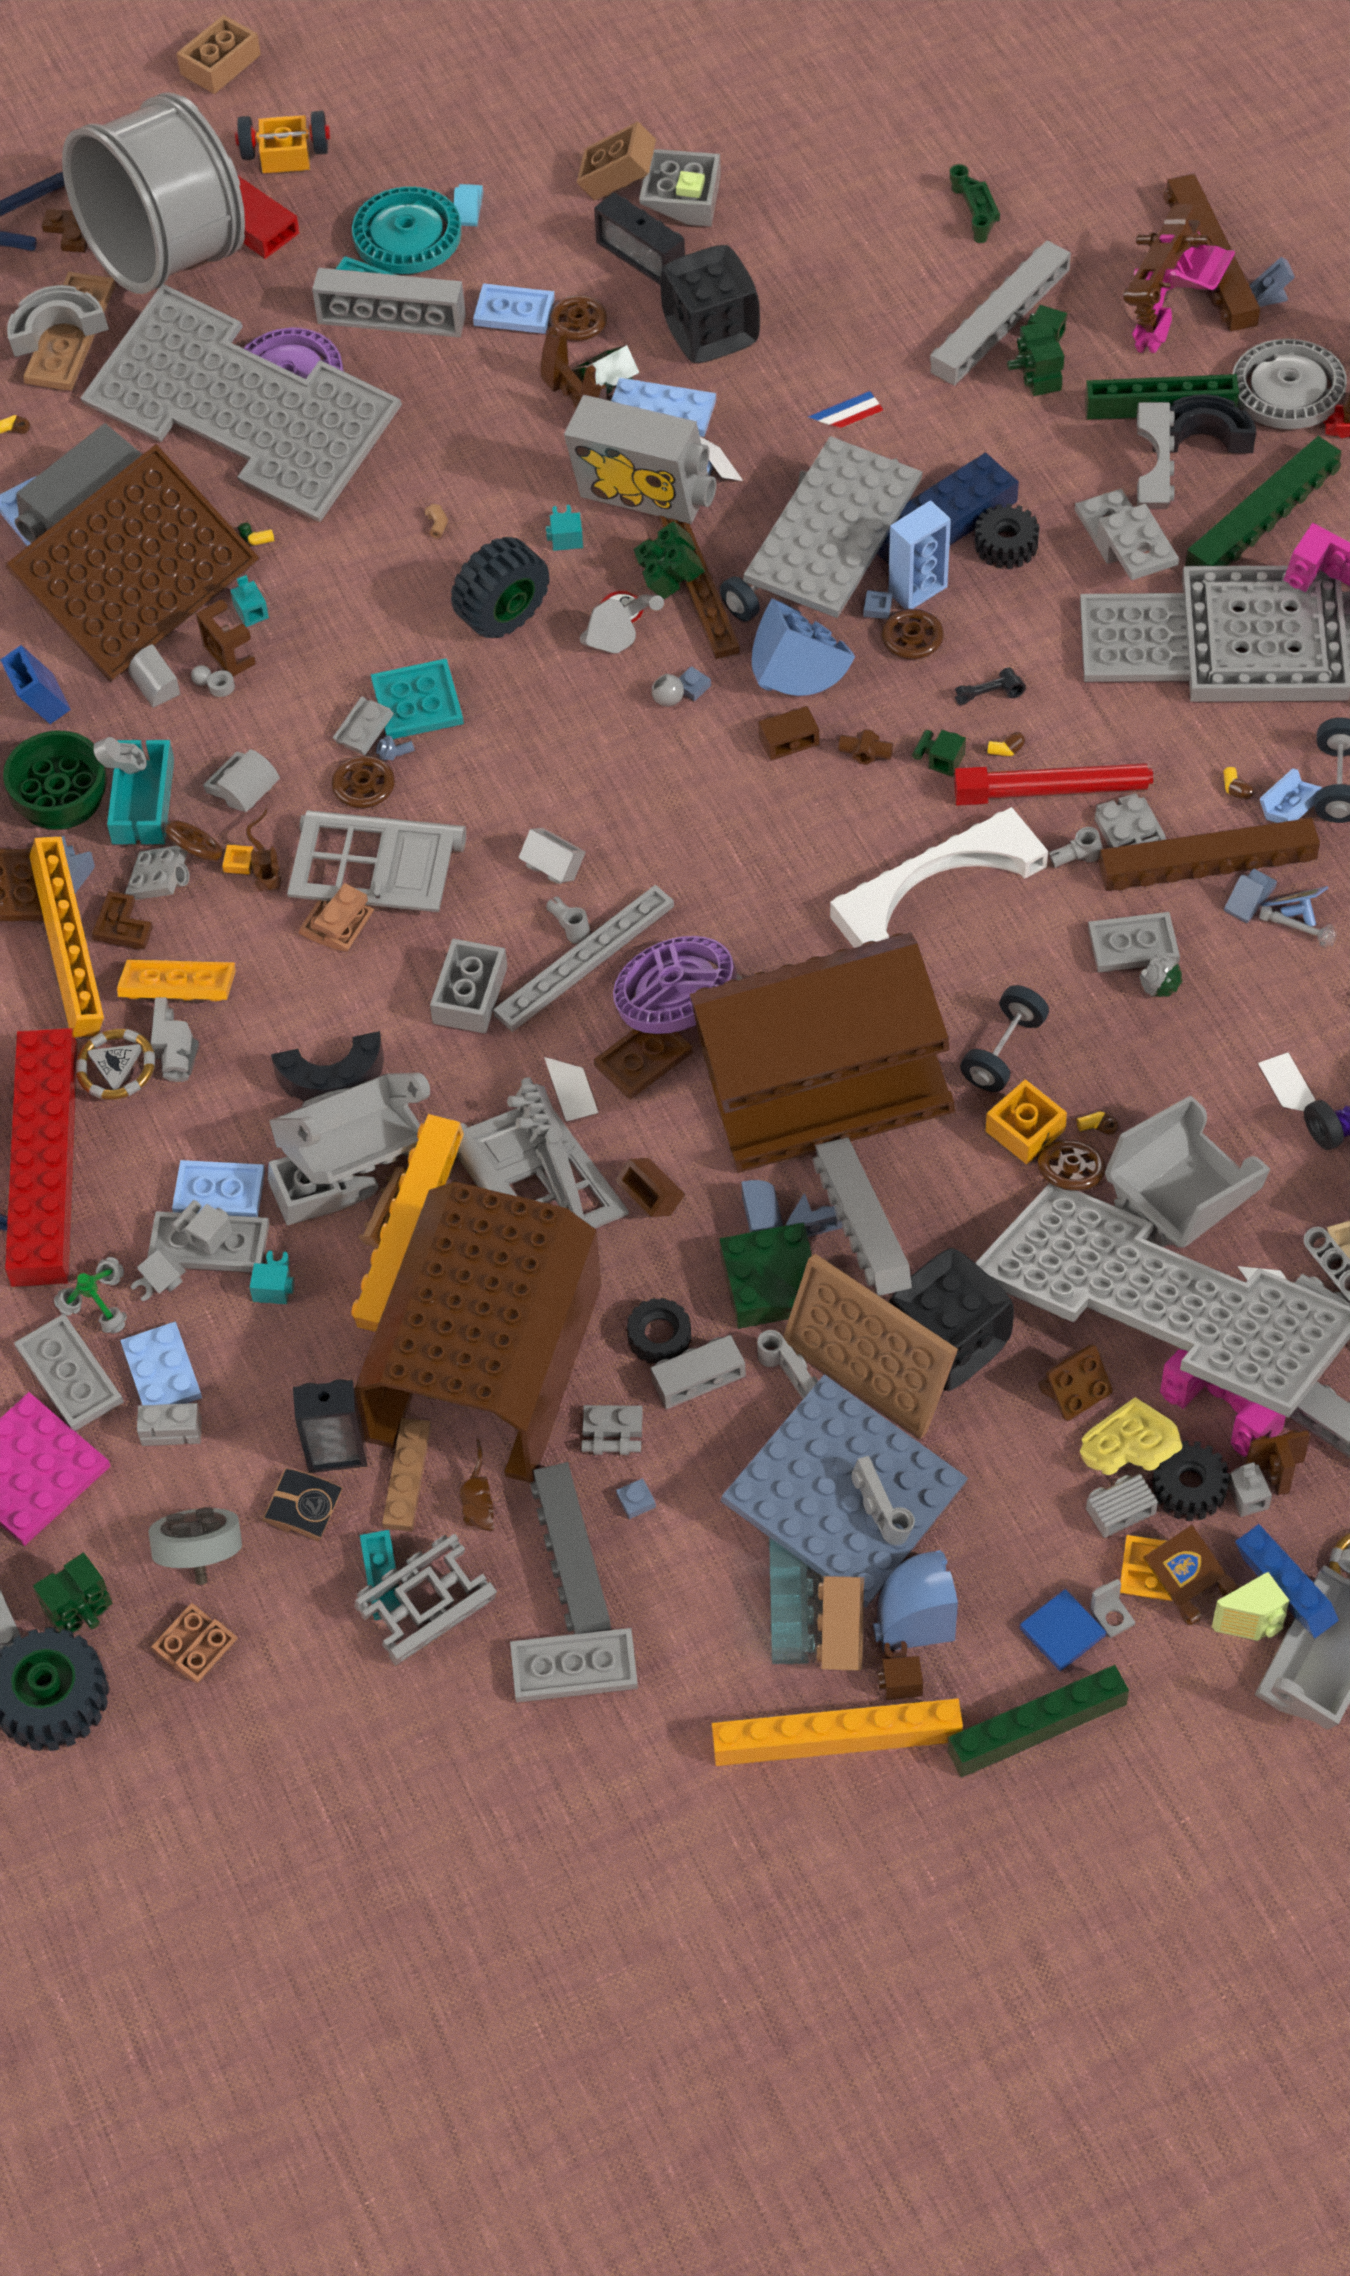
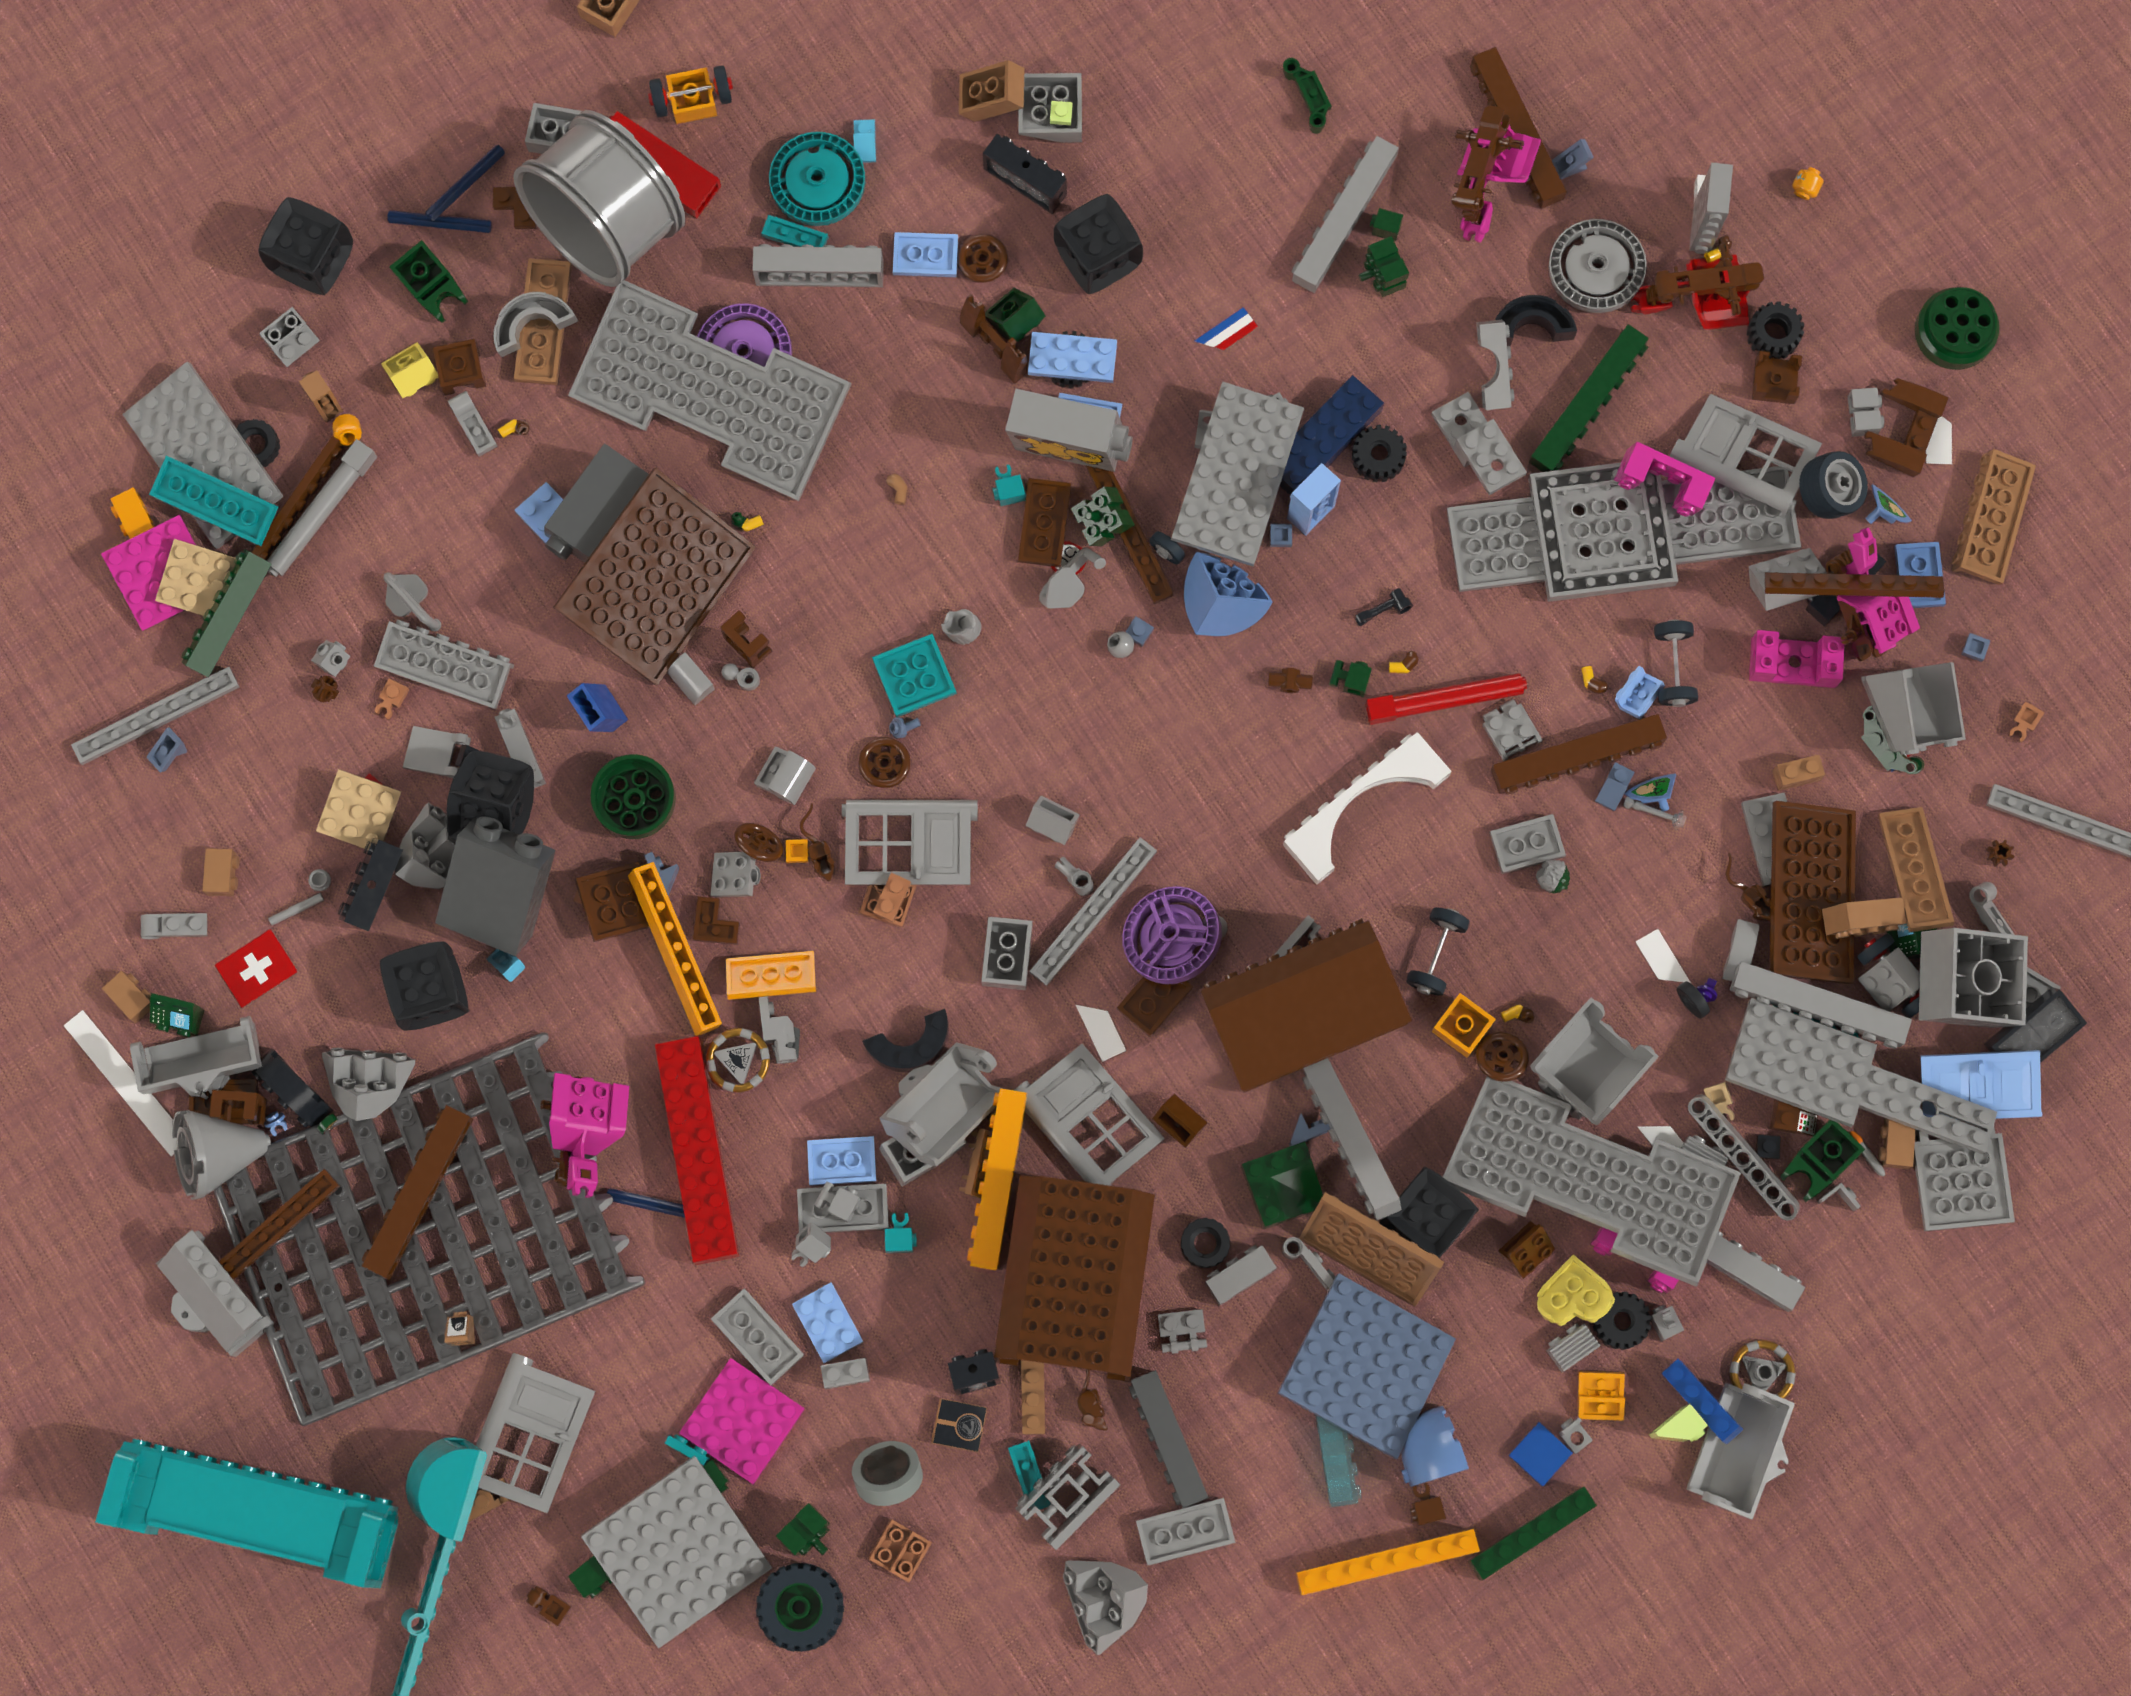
camera: 10 degrees left, 20 degrees up
(70, 1299) = (747, 1277): light grey plant -> none
(120, 755) = (684, 774): light grey piece -> none
(142, 799) = (705, 799): teal piece -> none
(249, 602) = (756, 595): teal brick -> none
(363, 725) = (875, 709): light grey plate -> none
(450, 1732) = (1104, 1600): none -> light grey brick
(482, 656) = (961, 626): none -> light grey hair
(500, 587) = (969, 568): black wheel -> none
(543, 1124) = (1098, 1099): light grey piece -> none
(600, 565) = (1044, 522): none -> reddish brown plate
(636, 1498) = (1209, 1386): sand blue plate -> none
(720, 461) = (1127, 399): white sticker -> none
(760, 1205) = (1269, 1127): sand blue brick -> none
(788, 733) = (1225, 674): reddish brown brick -> none
(841, 1623) = (1380, 1478): medium nougat brick -> none
(878, 1505) = (1394, 1380): light grey plate -> none
(912, 633) = (1324, 547): reddish brown plate -> none
(1084, 847) = (1471, 761): light grey pin -> none
(1121, 396) = (1489, 294): dark green brick -> none
(1186, 1569) = (1627, 1396): reddish brown flag -> none
(1279, 1457) = (1688, 1302): reddish brown bracket -> none

